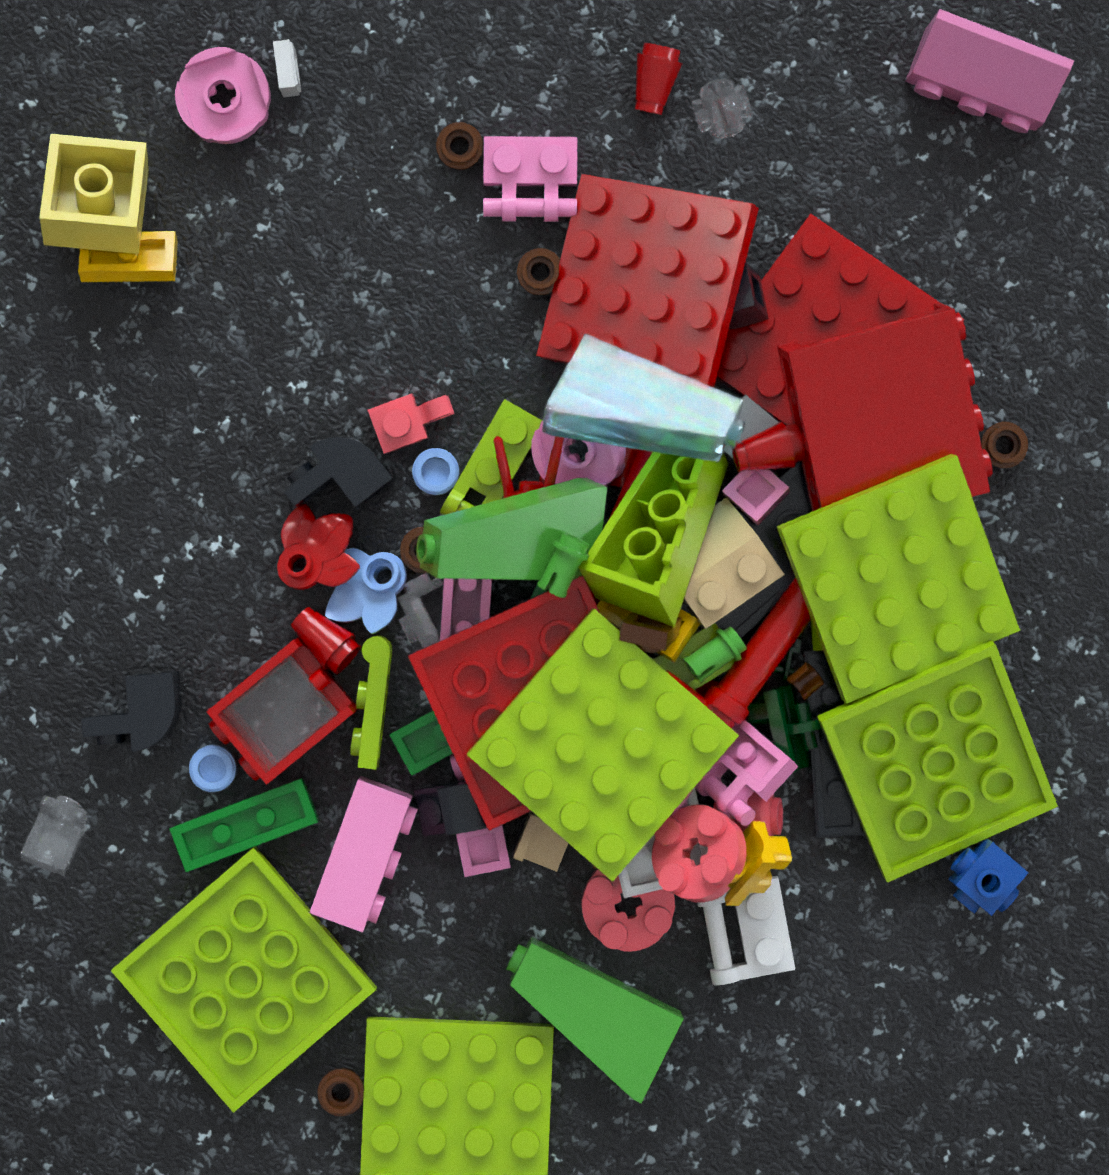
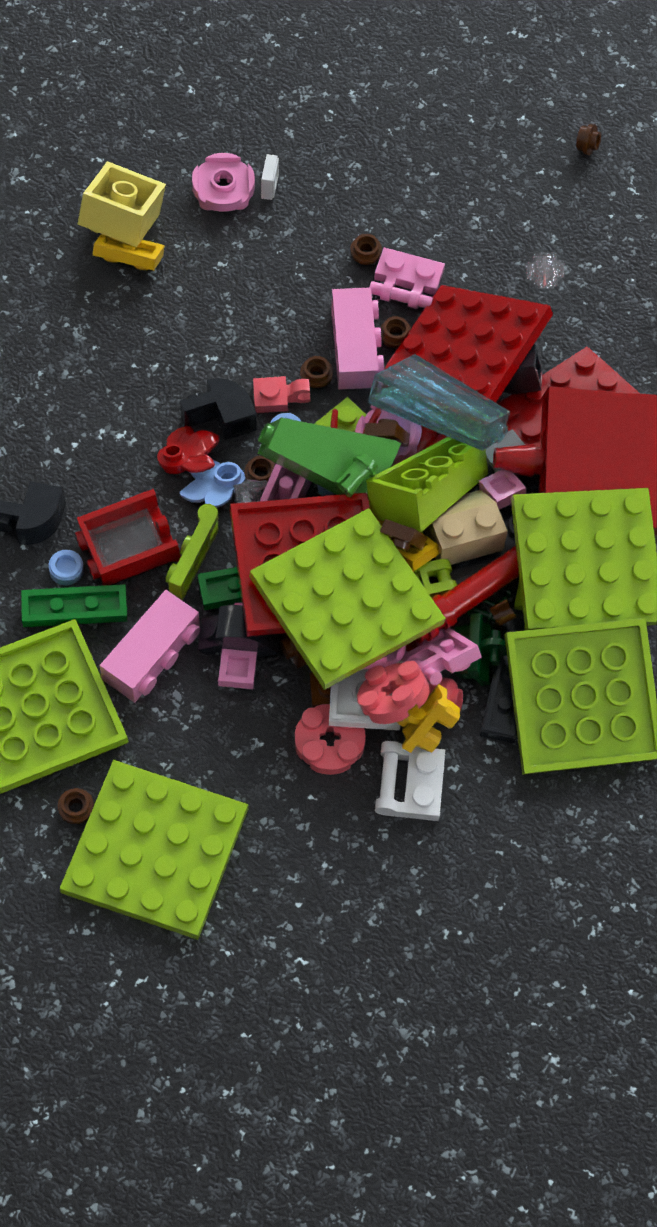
camera: 10 degrees right, 25 degrees down
(326, 640) = (175, 507): red cone -> none
(446, 355) = (320, 365): none -> reddish brown plate
(490, 302) = (356, 337): none -> bright pink brick
(540, 844) = (282, 673): tan panel -> none
(581, 469) = (388, 429): none -> reddish brown plate
(602, 1016) = (286, 804): bright green slope -> none
(655, 76) = (507, 243): red cone -> none
(715, 654) = (444, 572): bright green pin -> none
(1003, 878) = (599, 787): blue brick -> none

